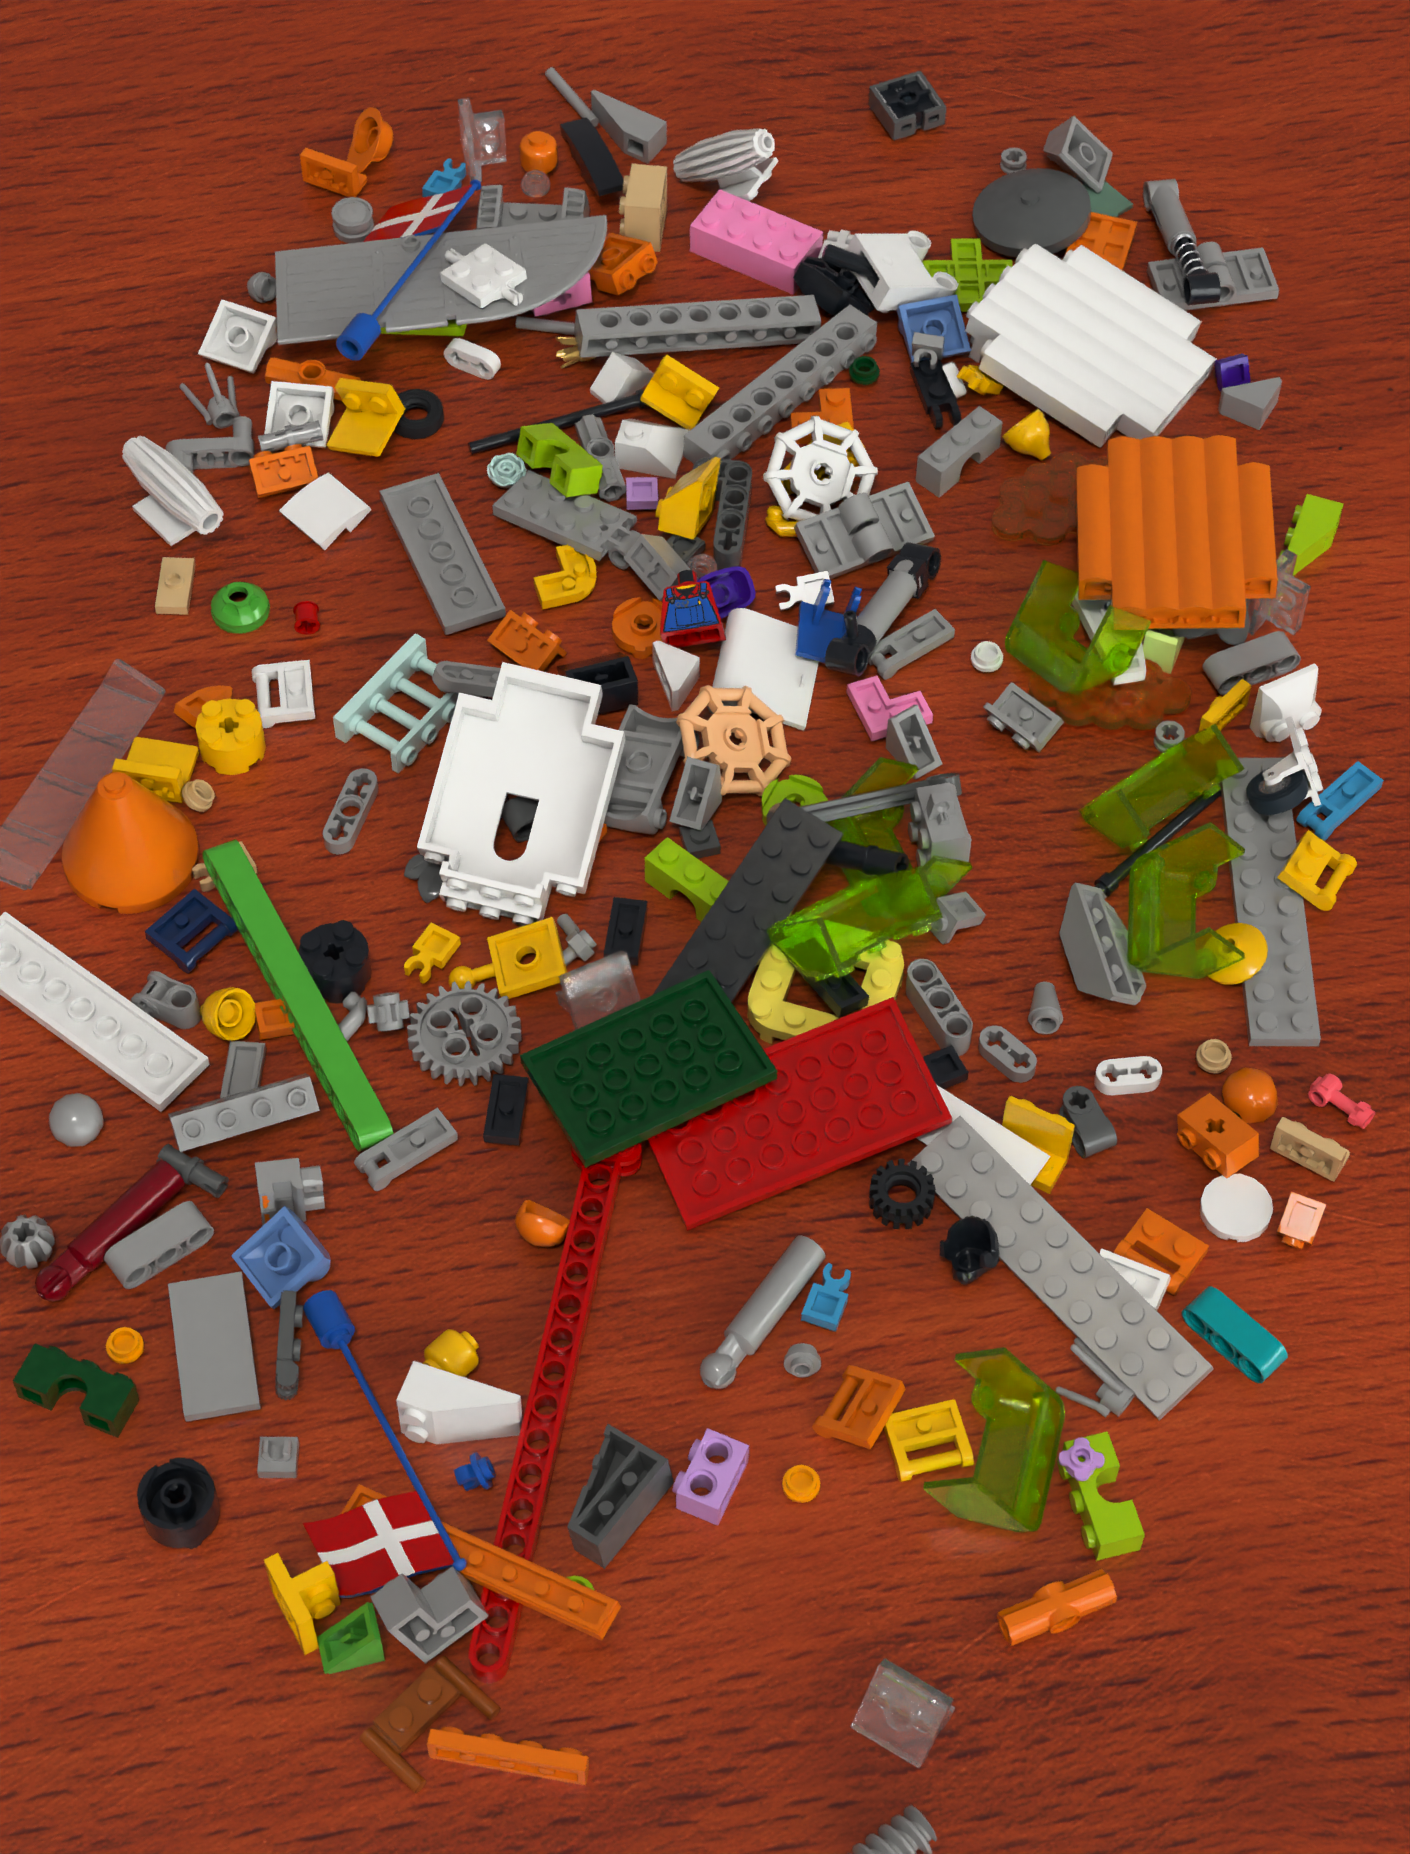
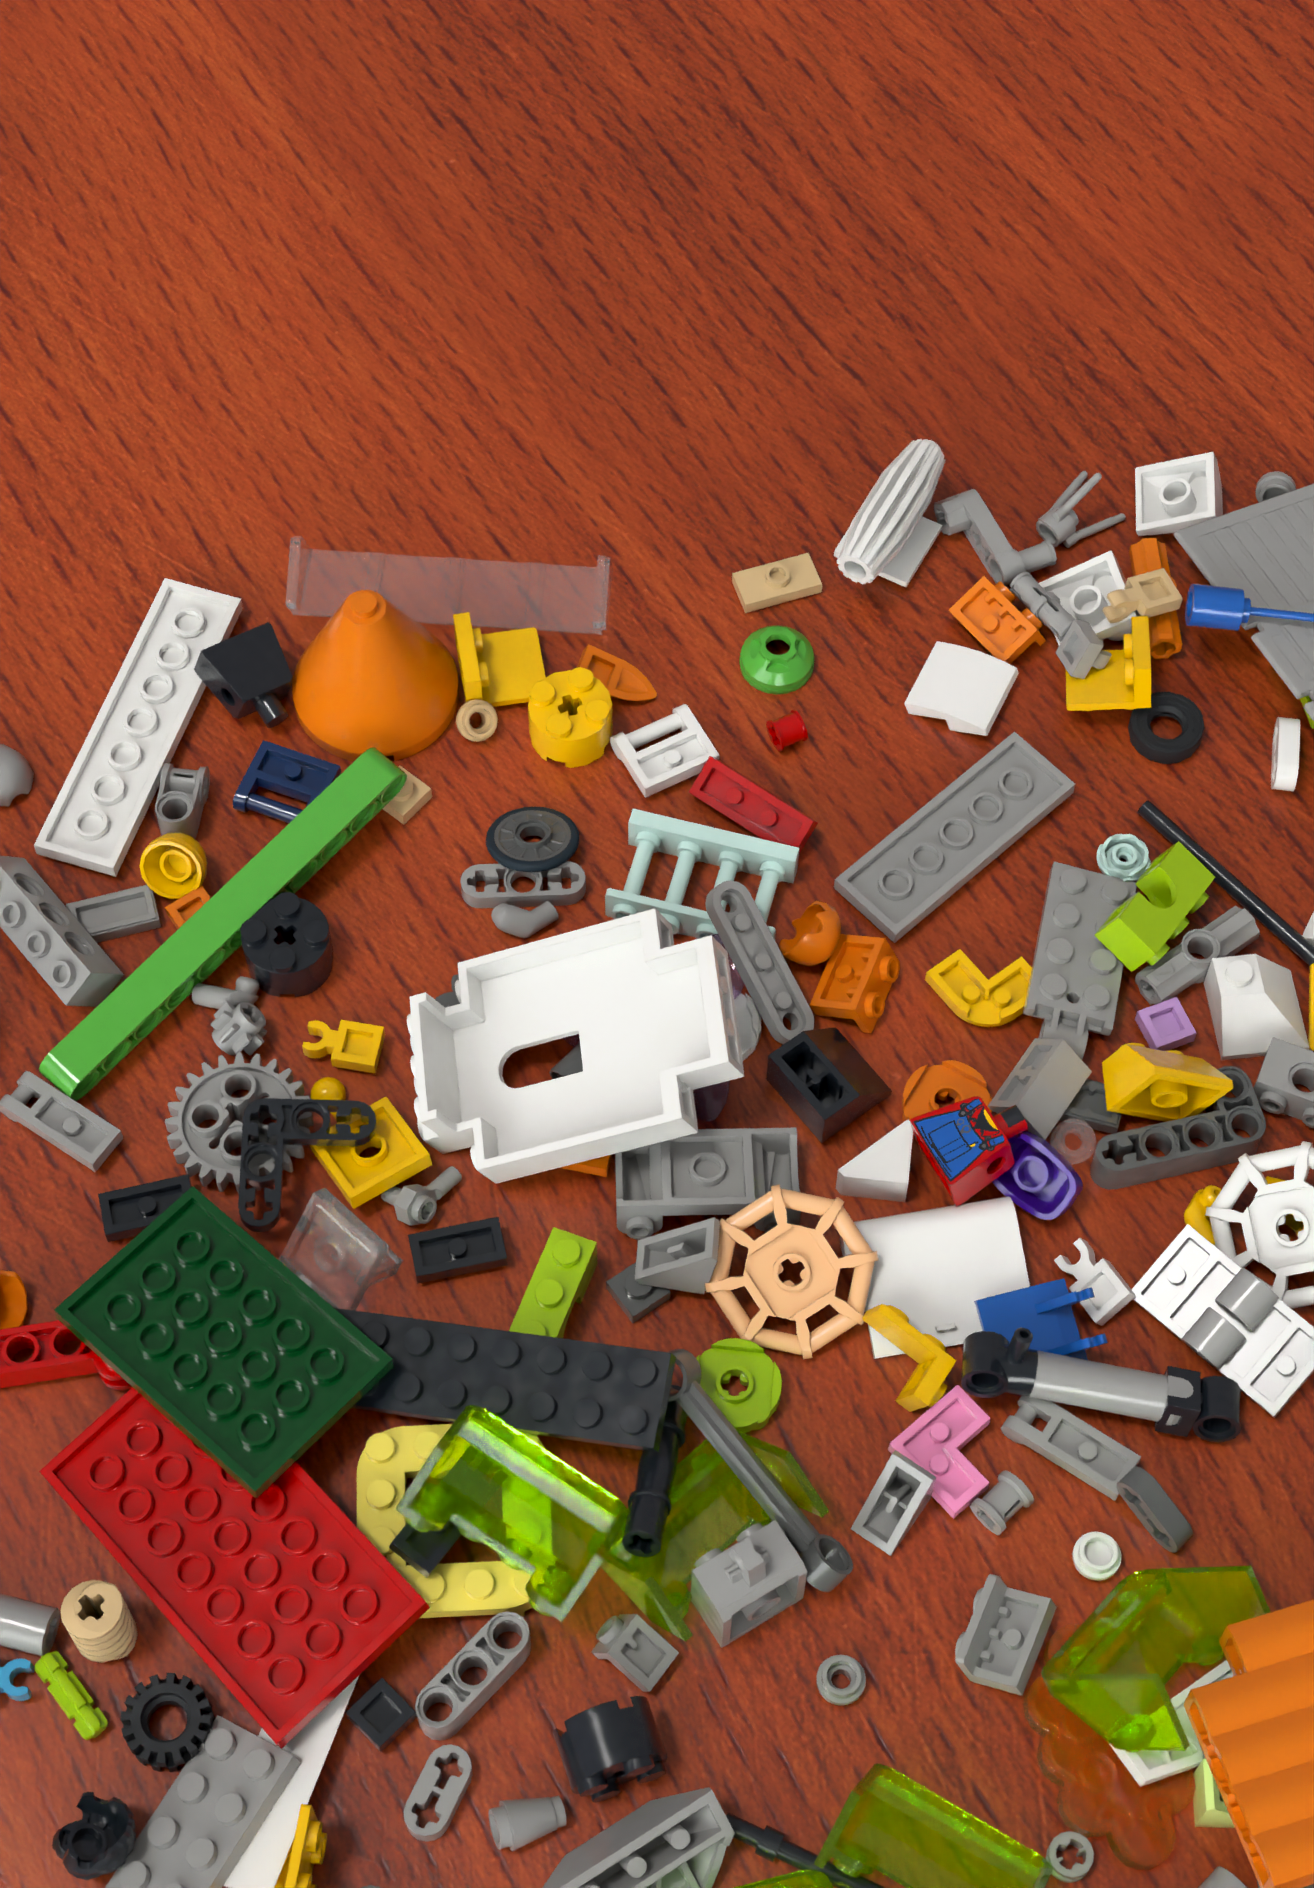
camera: 70 degrees right, 5 degrees up
(83, 921) = (248, 674): none -> black torso
(298, 797) = (557, 846): none -> dark grey wheel
(322, 371) = (1147, 593): none -> tan plate
(338, 428) = (1082, 650): none -> light grey tile
(359, 655) = (751, 805): none -> red plate
(381, 820) = (521, 921): none -> light grey arm
(483, 647) = (815, 935): none -> orange hair
(496, 997) = (287, 1133): none -> black beam
(821, 1204) = (99, 1621): none -> tan piece
(826, 693) = (926, 1382): none -> yellow bracket
(859, 1250) = (71, 1695): none -> lime axle
(934, 690) = (1002, 1502): none -> light grey bush
(973, 613) = (1155, 1509): none -> dark grey beam
(1018, 807) = (840, 1665): none -> light grey plate
(1021, 937) = (611, 1748): none -> black brick

